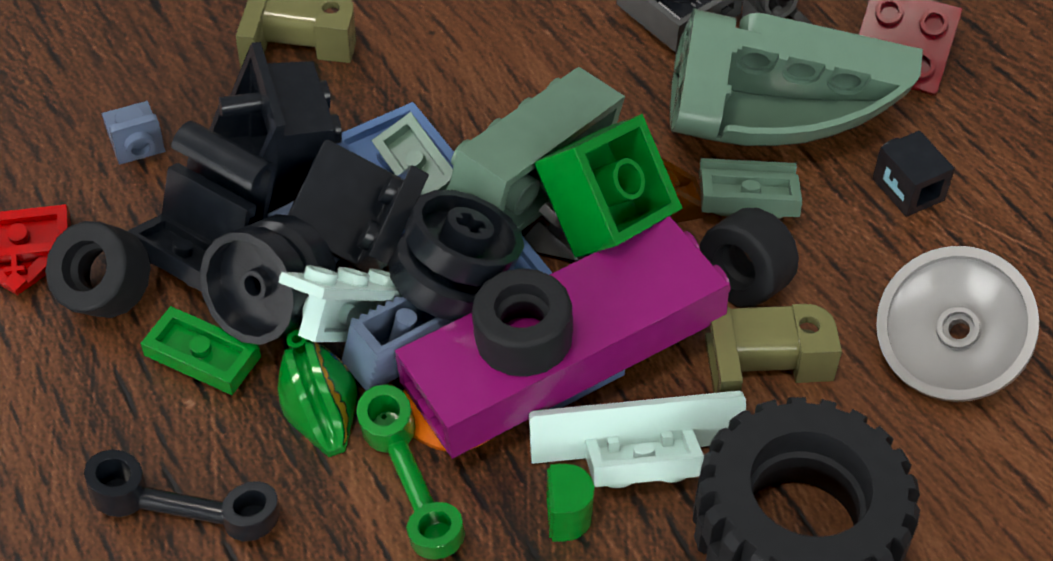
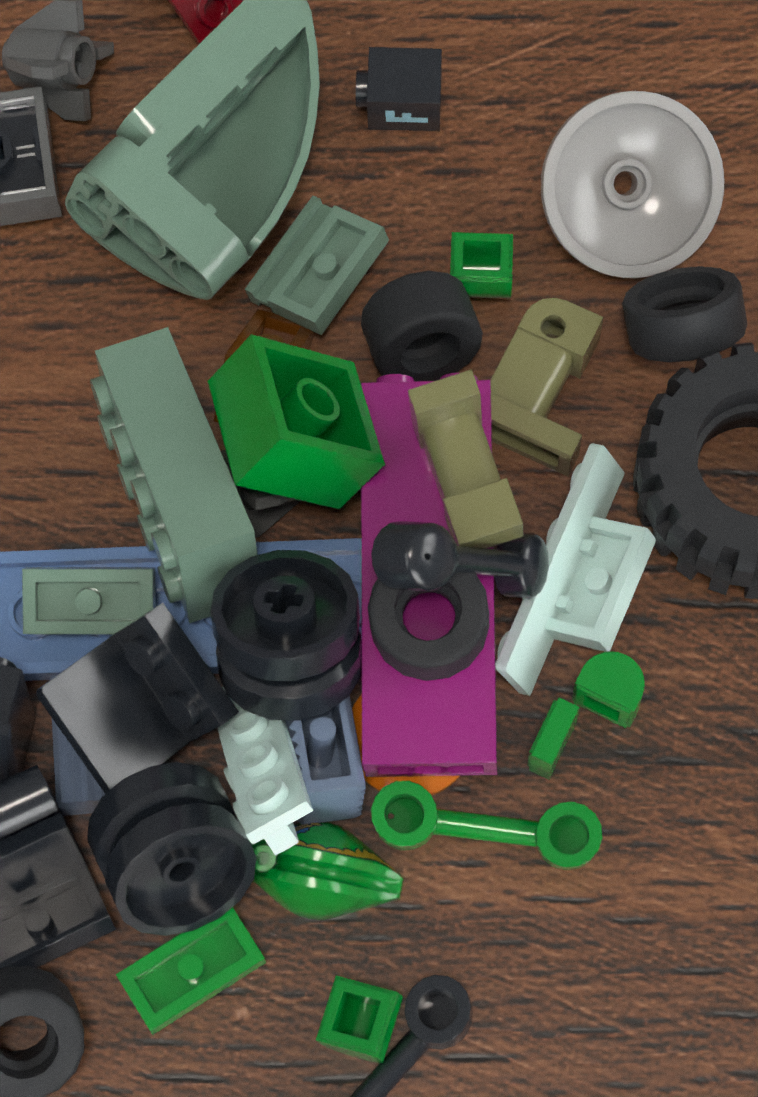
camera: 55 degrees left, 20 degrees up
(216, 463) = (359, 1019): none -> green brick
(504, 483) = (552, 738): none -> green tile
(609, 375) = (426, 558): none -> black piece
(653, 285) = (450, 430): none -> olive piece
(826, 276) = (483, 263): none -> green brick
(888, 401) = (684, 313): none -> black tyre

